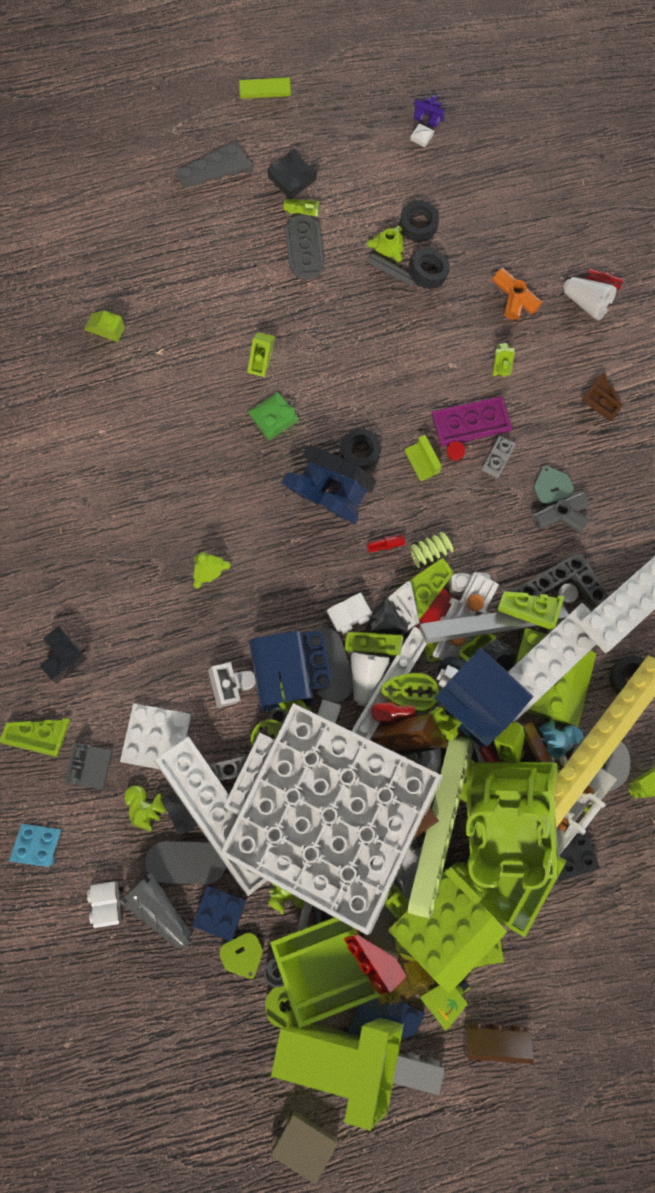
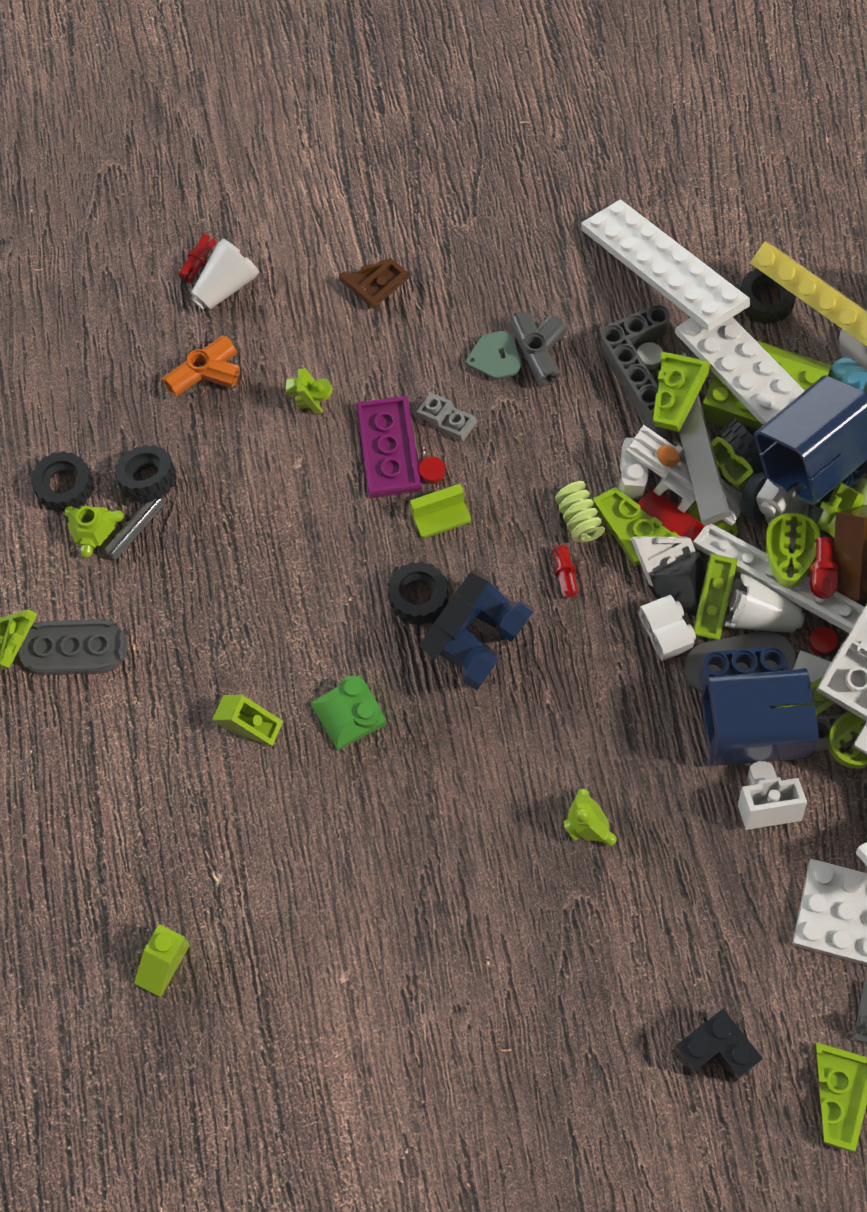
camera: 80 degrees left, 10 degrees down
(349, 720) = (823, 641): none -> red tile

